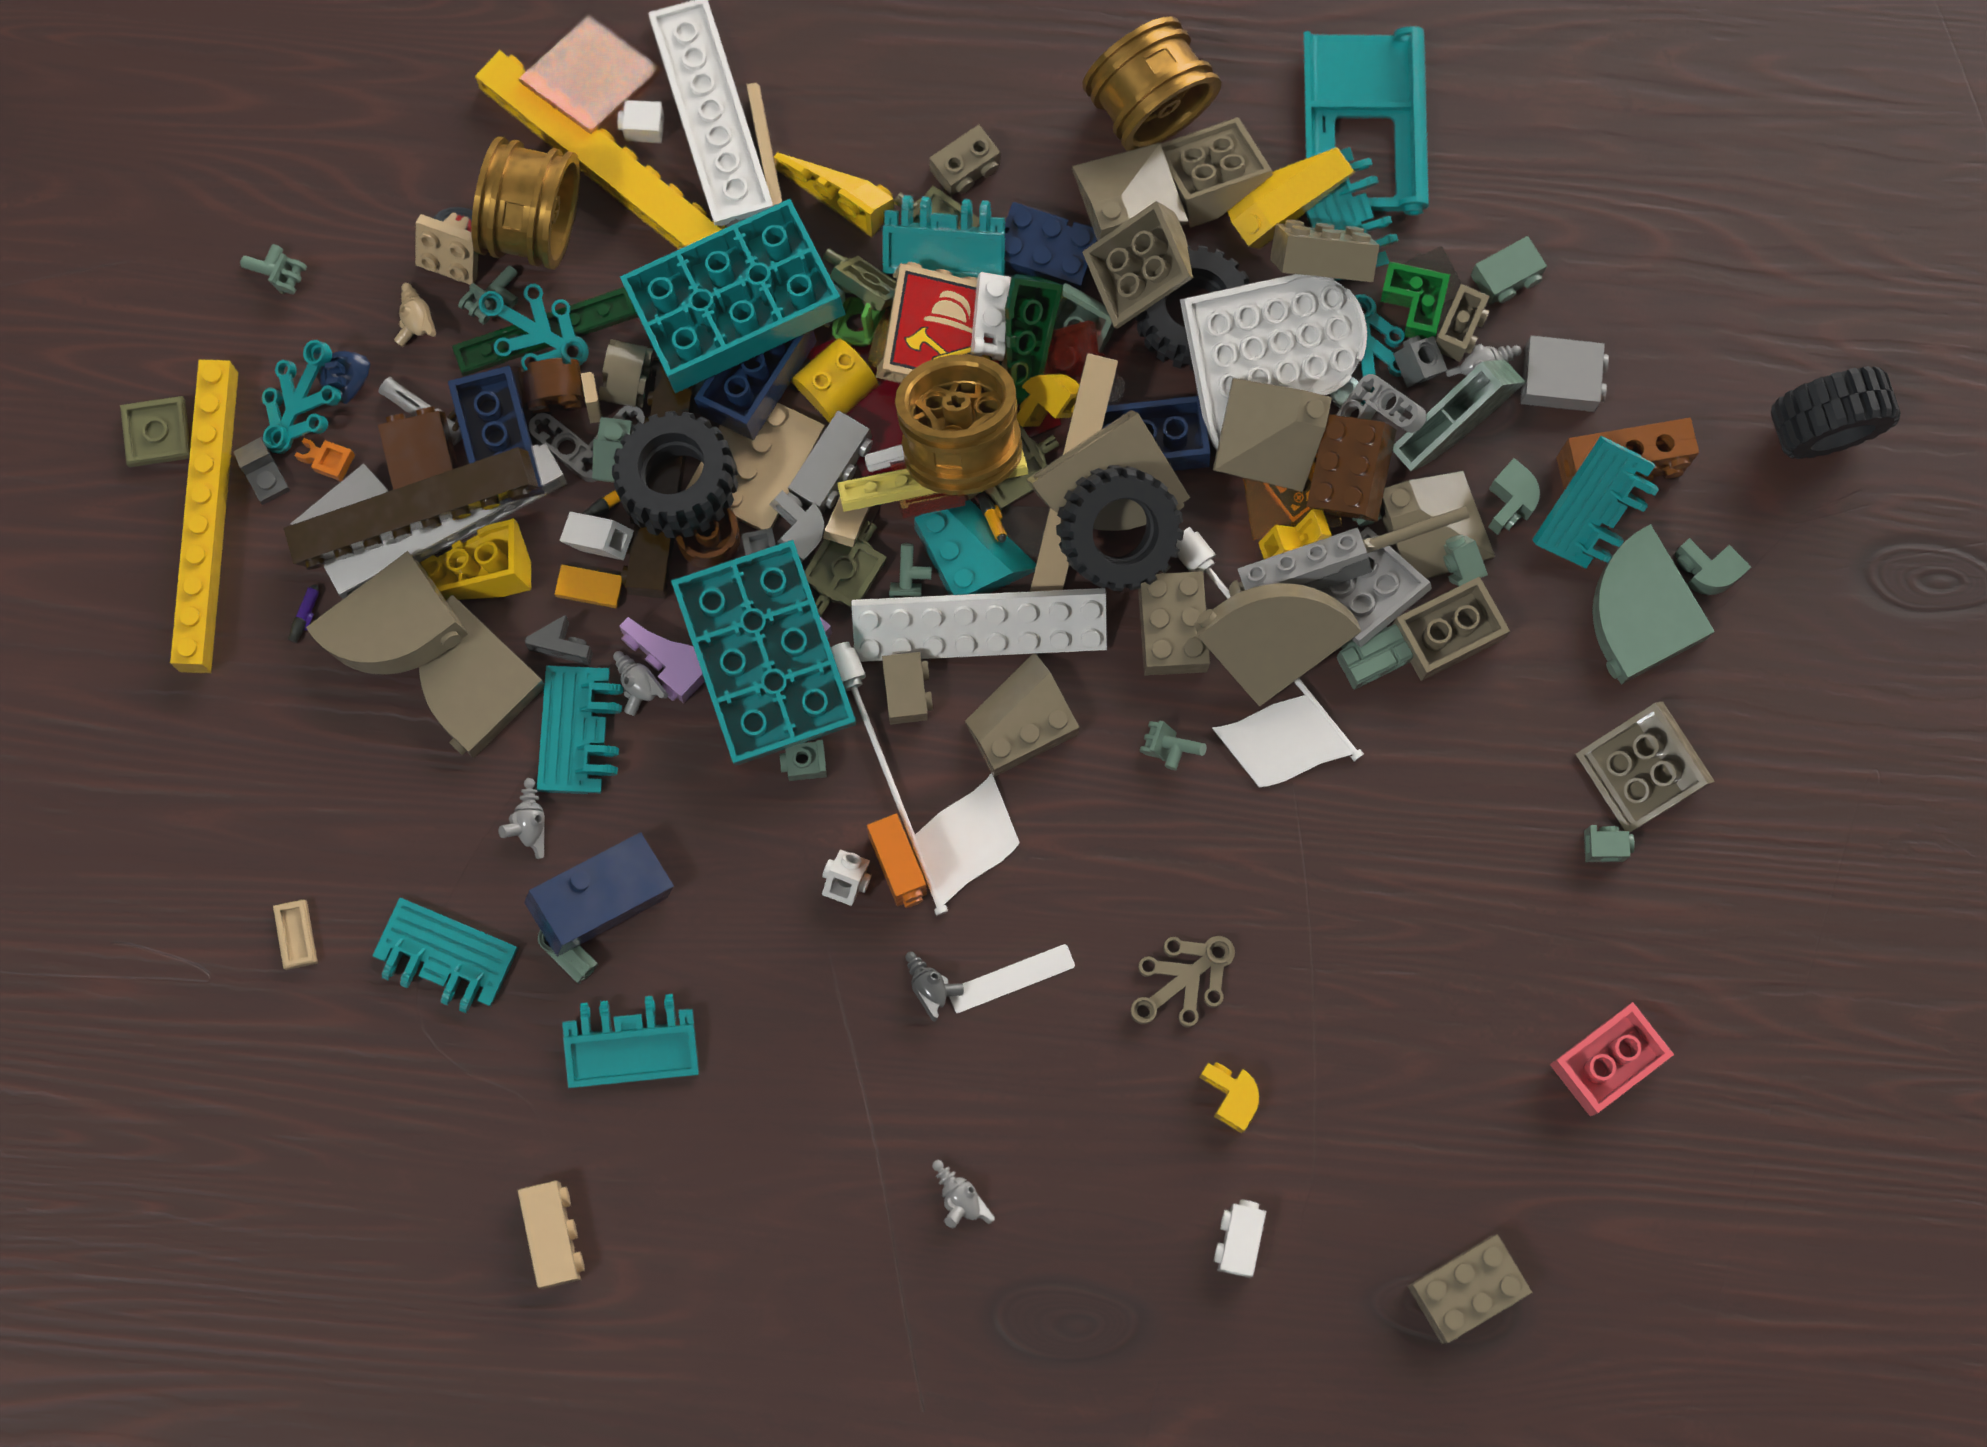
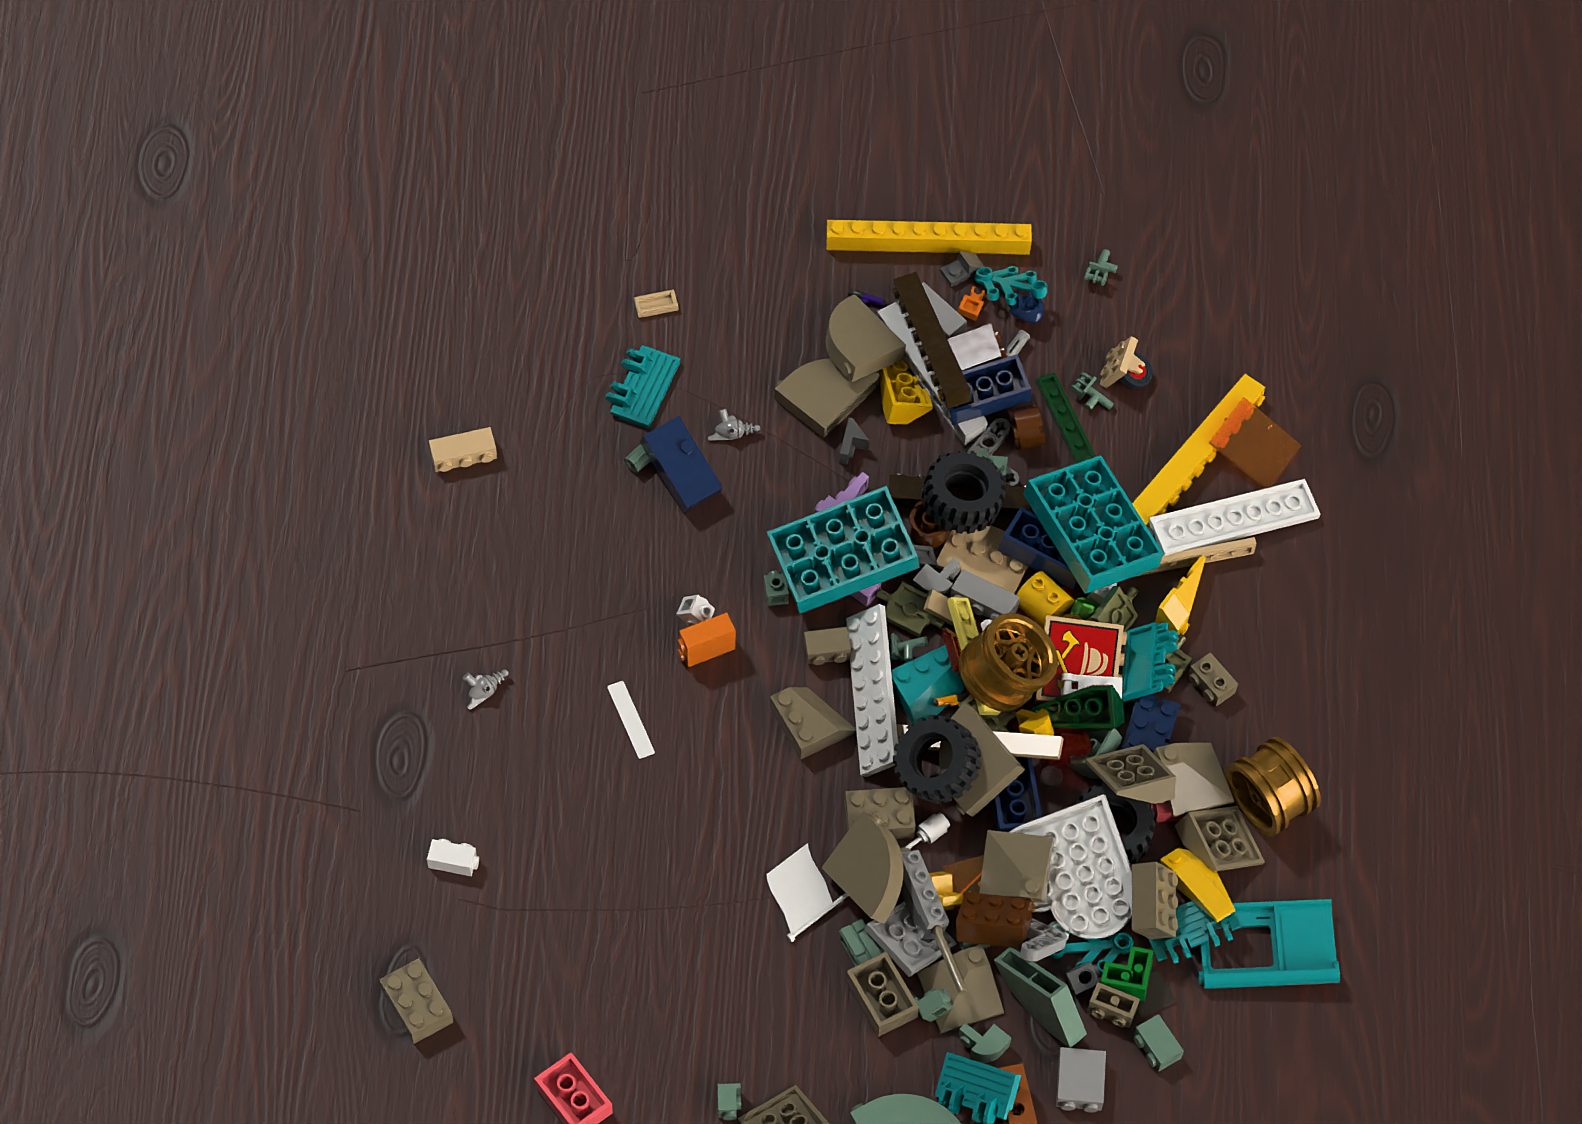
camera: 90 degrees right, 15 degrees down
(155, 431) = (985, 206): olive plate -> none
(414, 316) = (1074, 348): tan piece -> none
(525, 202) = (1150, 400): pearl gold wheel -> none
(538, 331) = (1067, 419): teal plant -> none
(571, 728) = (794, 453): teal hinge -> none
(588, 586) = (892, 458): light orange tile -> none
(591, 397) = (1020, 450): tan tile -> none
(596, 535) = (923, 455): white brick -> none
(626, 373) = (1036, 464): dark tan brick -> none
(630, 1050) = (581, 489): teal hinge -> none
(637, 682) = (826, 486): light grey piece -> none
(641, 121) = (1224, 478): white brick -> none
(930, 986) = (623, 666): dark grey piece -> none
(960, 839) = (726, 687): white flag -> none
(1164, 744) = (794, 810): sand green arm -> none
(1187, 977) = (630, 826): dark tan plant -> none
(1241, 1095) = (549, 857): yellow brick -> none
(1484, 353) = (1090, 1025): light grey piece -> none

